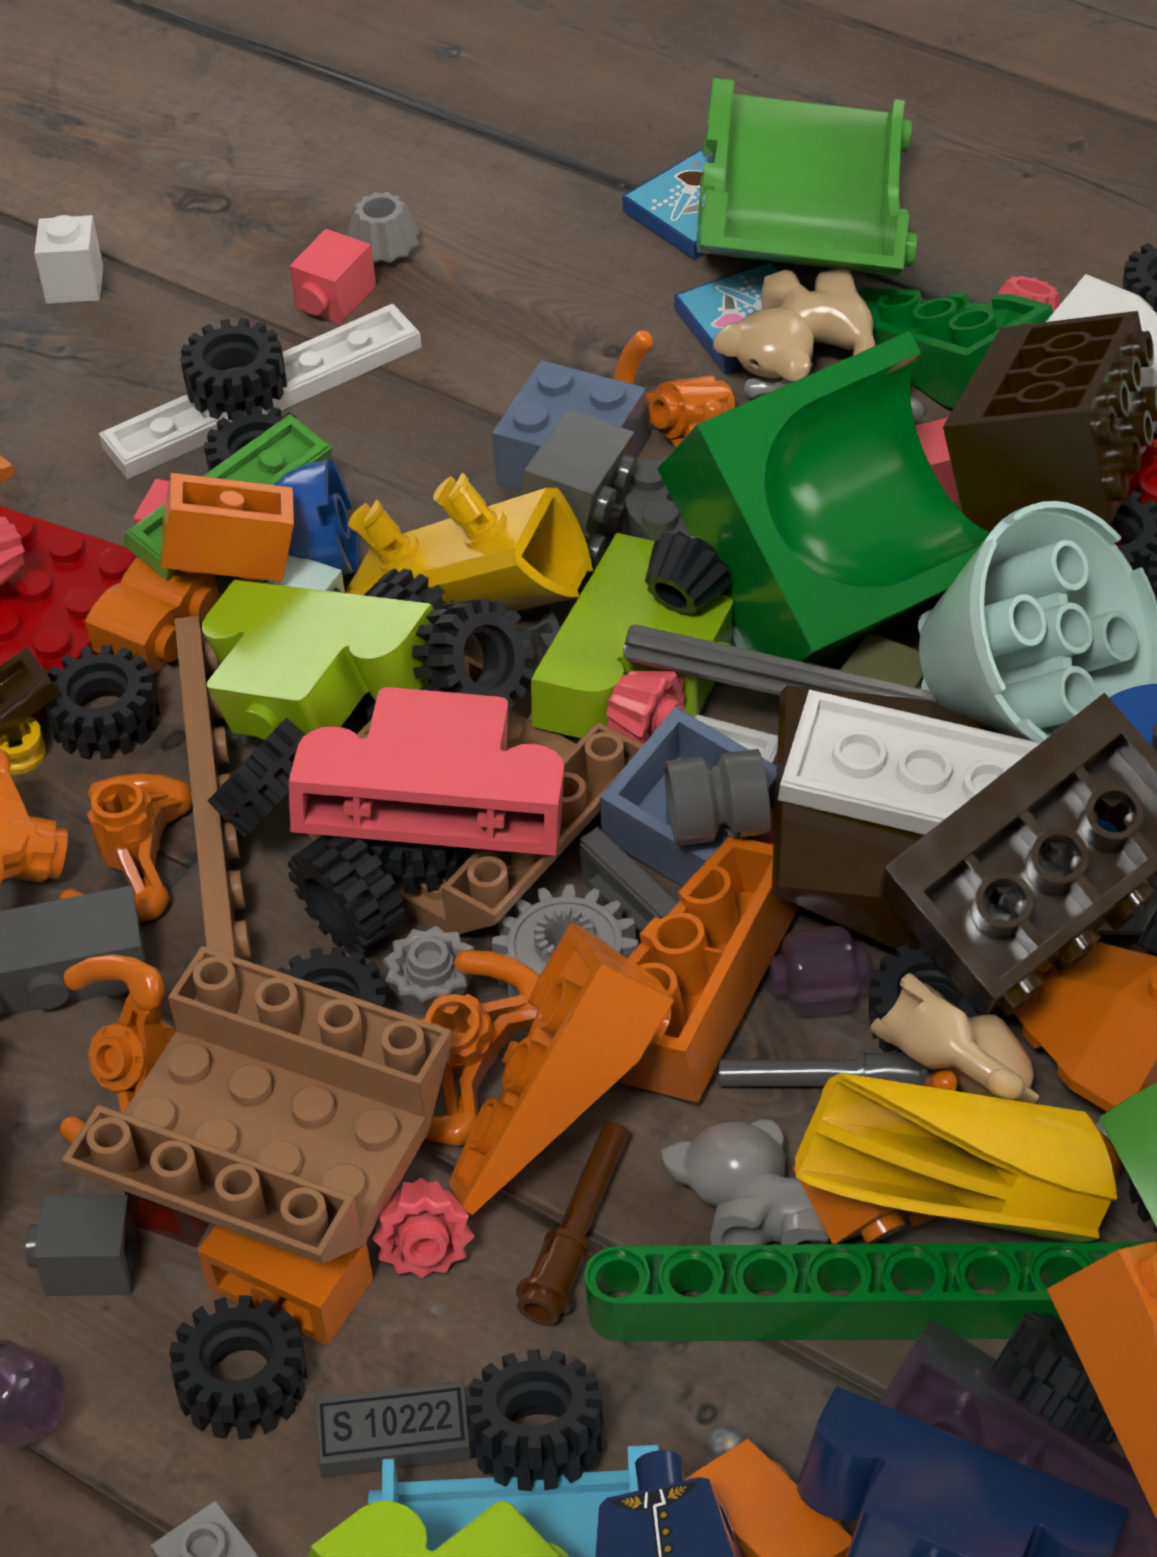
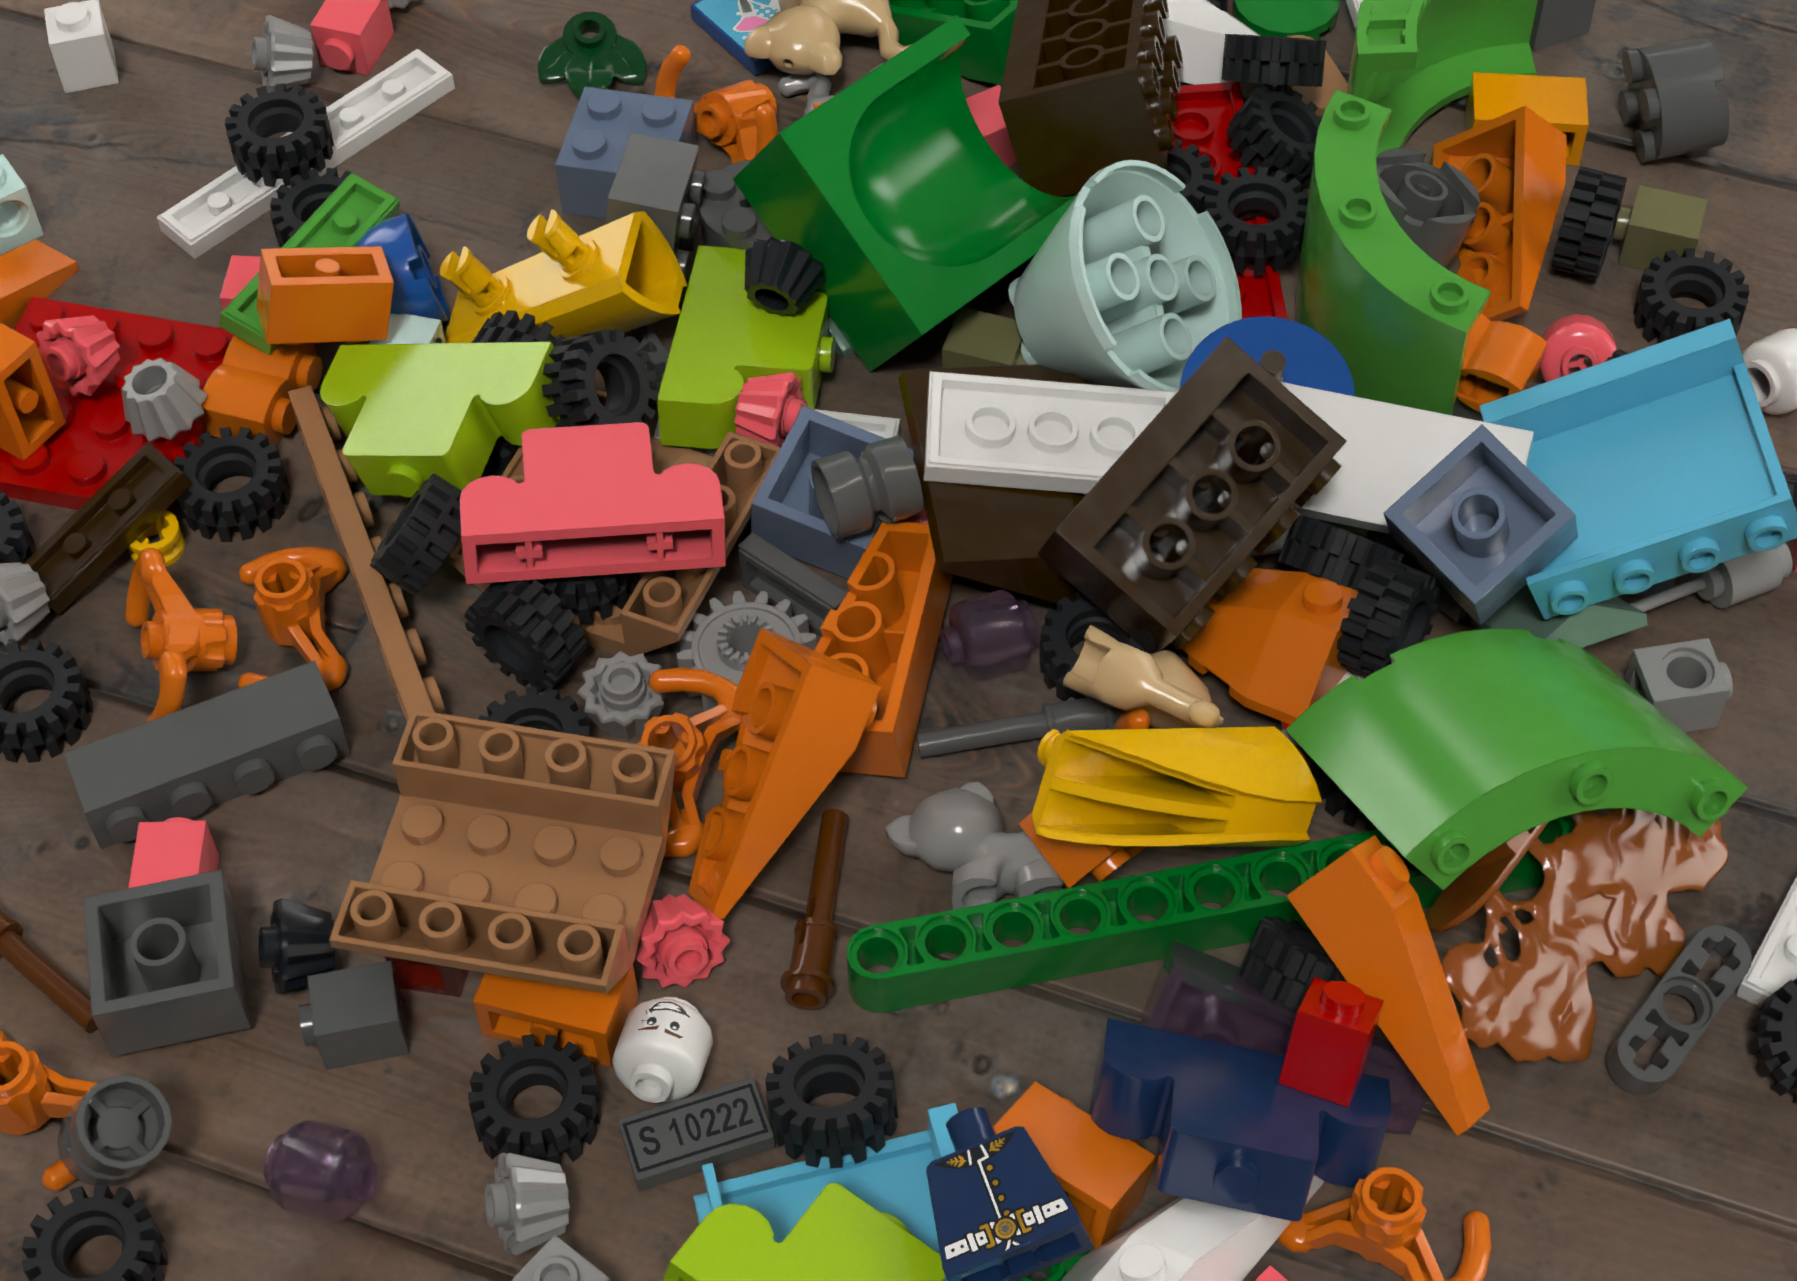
camera: 15 degrees left, 5 degrees up
(38, 1164) = (296, 944): none -> black piece
(50, 608) = (161, 399): none -> light grey piece
(125, 1050) = (357, 821): orange piece -> none
(202, 1463) = (526, 1202): none -> light grey piece
(258, 291) = (282, 54): none -> light grey piece
(379, 1333) = (662, 1050): none -> white head
(563, 336) = (591, 60): none -> dark green plate
(748, 667) = (860, 358): dark grey axle -> none
(1064, 1453) = (1331, 1041): none -> red brick

